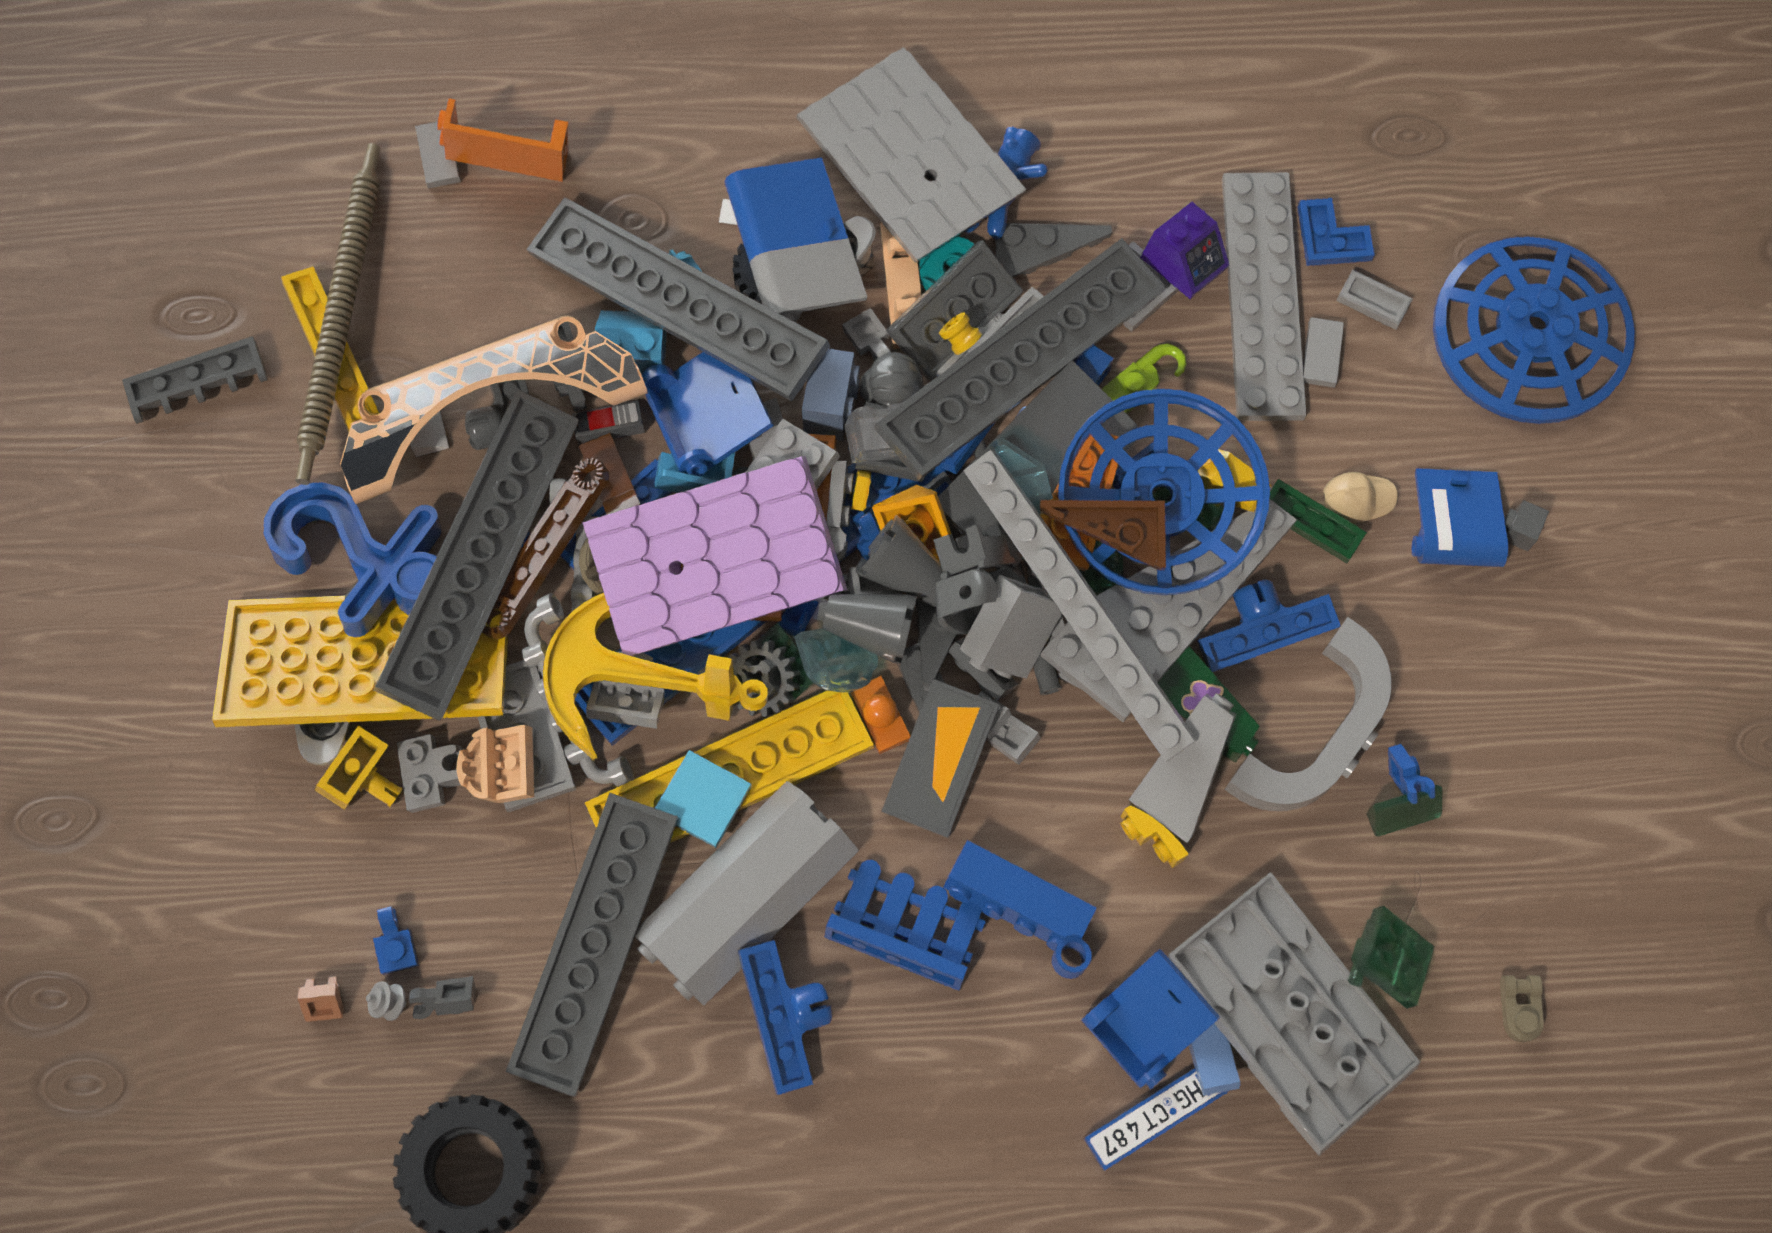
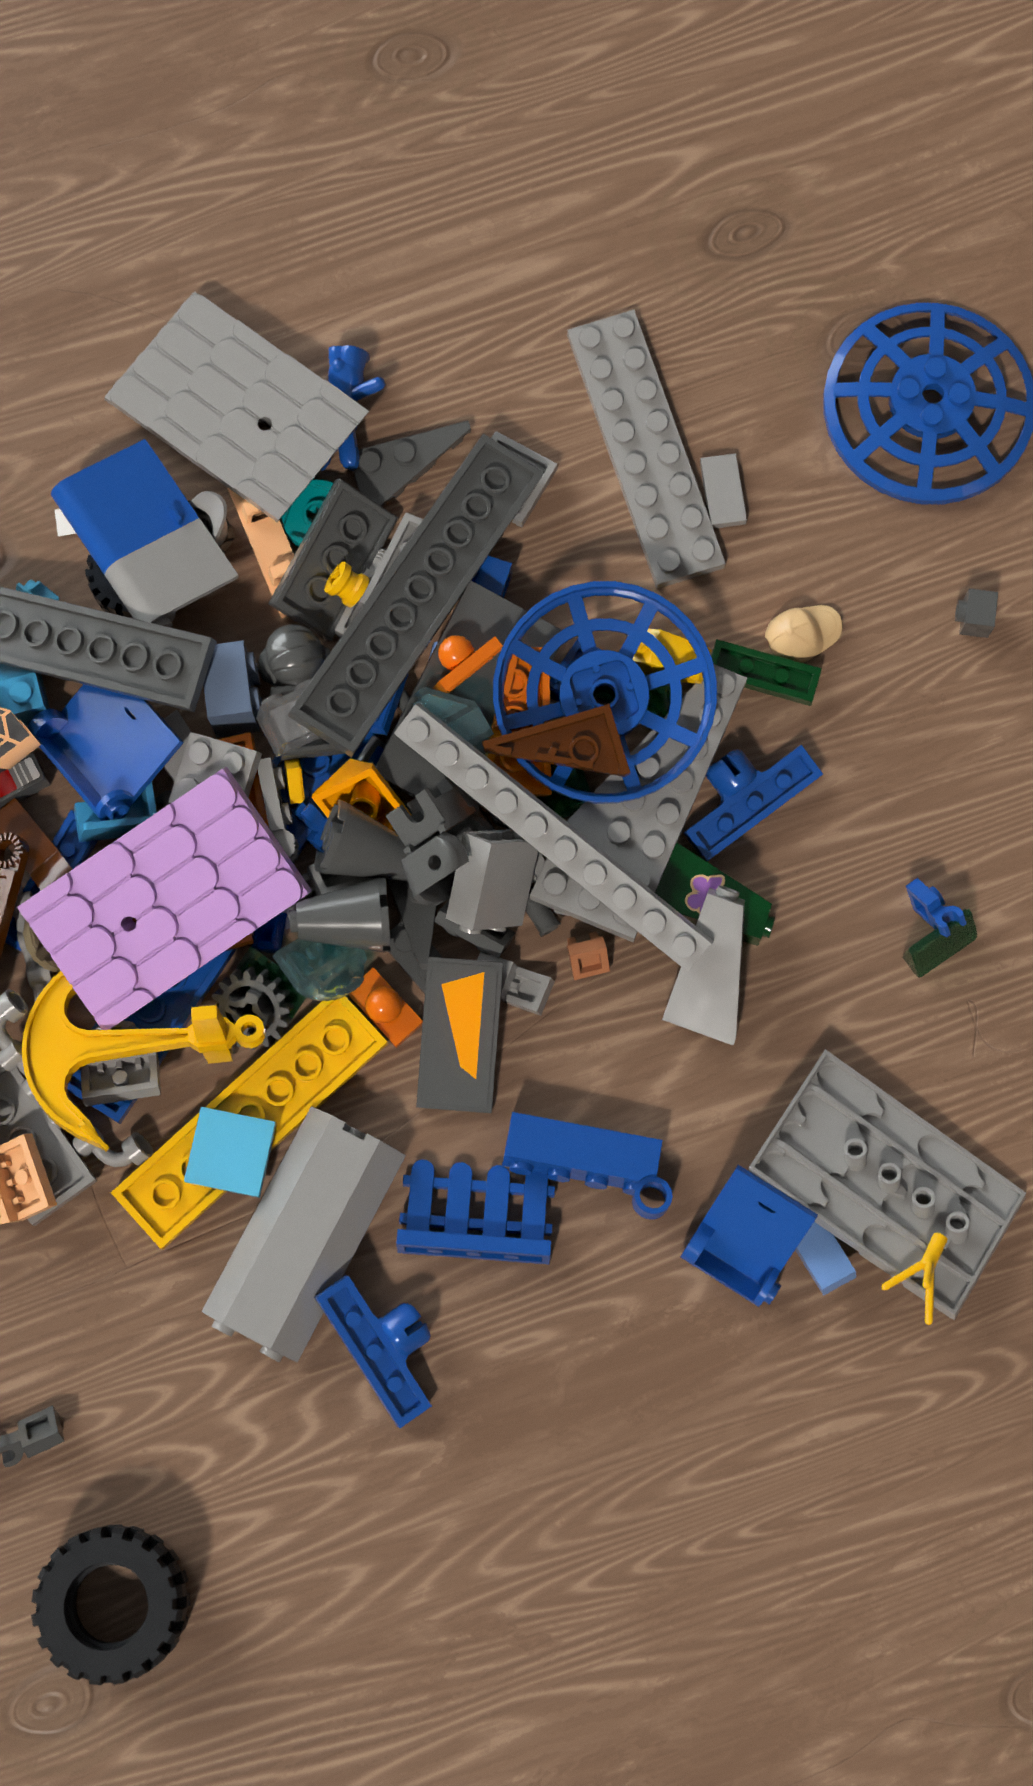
camera: 15 degrees left, 5 degrees up
(592, 945) = (164, 1336): dark grey plate -> none
(867, 334) = (250, 612): light grey plate -> none
(1043, 426) = (459, 657): none -> orange tile
(1077, 725) = (588, 957): none -> nougat tile
(1143, 374) = (546, 572): lime plate -> none
(1144, 827) = (684, 1043): yellow slope -> none
(1148, 1120) = (775, 1335): tile -> none
(1187, 250) = (554, 425): dark purple slope -> none
(1309, 1095) = (928, 1265): none -> yellow plant
(1327, 243) = (693, 373): blue plate -> none
(1369, 670) = (865, 812): light grey arch -> none
(1374, 299) = (759, 419): light grey tile -> none
(1391, 957) = (969, 1098): clear green plate -> none
(1460, 519) = (911, 625): blue door -> none

